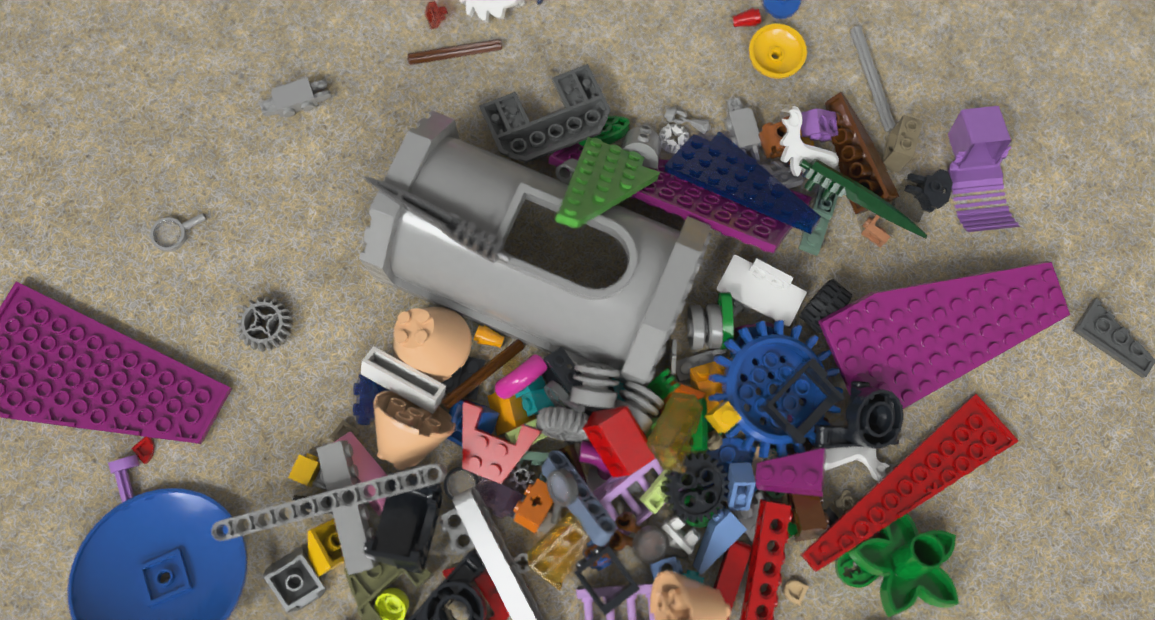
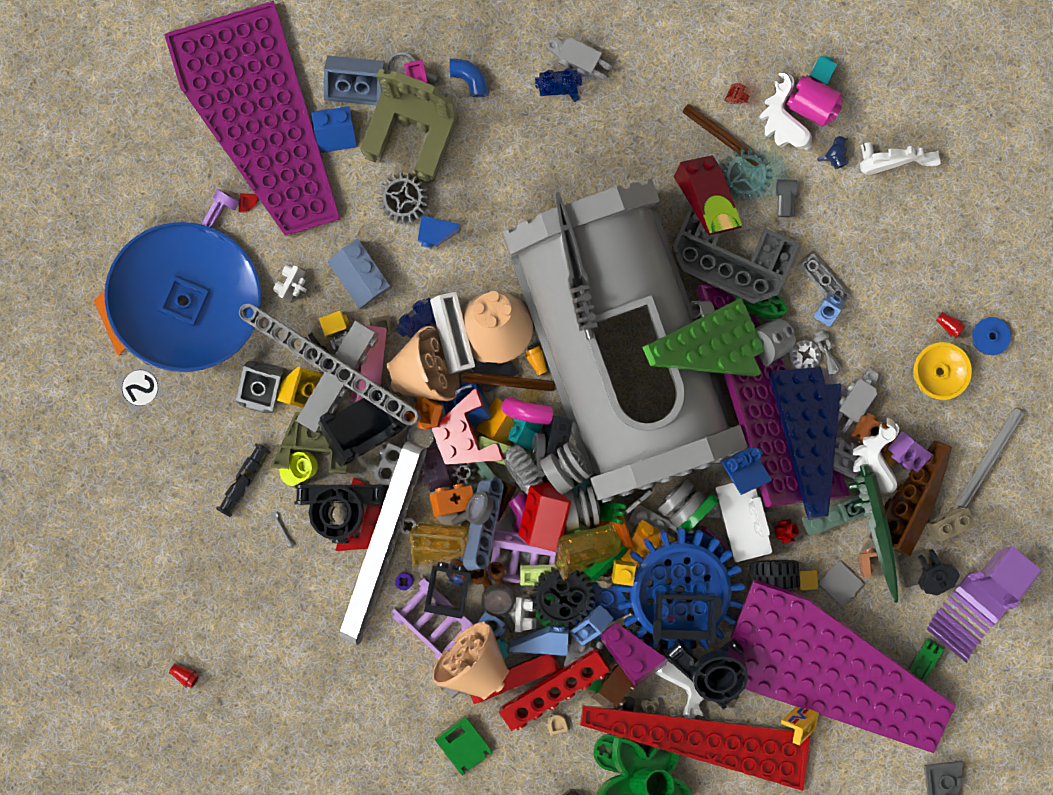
camera: 50 degrees right, 10 degrees up
(138, 277) = (352, 80): none -> sand blue slope
(158, 326) = (334, 129): none -> blue slope
(184, 226) = (416, 70): none -> dark pink bracket
(188, 260) = (398, 103): none -> olive bracket
(226, 186) = (471, 74): none -> blue cylinder
(242, 474) = (292, 285): none -> white hips
(287, 412) = (358, 273): none -> sand blue slope
(300, 125) = (559, 83): none -> clear blue brick
(314, 319) = (436, 231): none -> blue slope
(449, 457) = (430, 413): none -> orange bracket
(485, 93) = (708, 194): none -> dark red slope
(503, 40) = (761, 166): none -> clear light blue gear
(540, 43) = (786, 192): none -> dark grey piece
(569, 613) = (398, 580): none -> dark purple bush
(620, 76) = (816, 271): none -> light grey tile
(661, 94) = (826, 315): none -> medium blue brick
(730, 239) = (746, 470): none -> blue hinge
(798, 268) = (786, 531): none -> red gear
(852, 286) = (808, 580): none -> yellow slope
(873, 266) = (840, 583): none -> light grey piece
(962, 389) = (803, 721): none -> yellow panel
(989, 253) = (925, 660): none -> green hinge

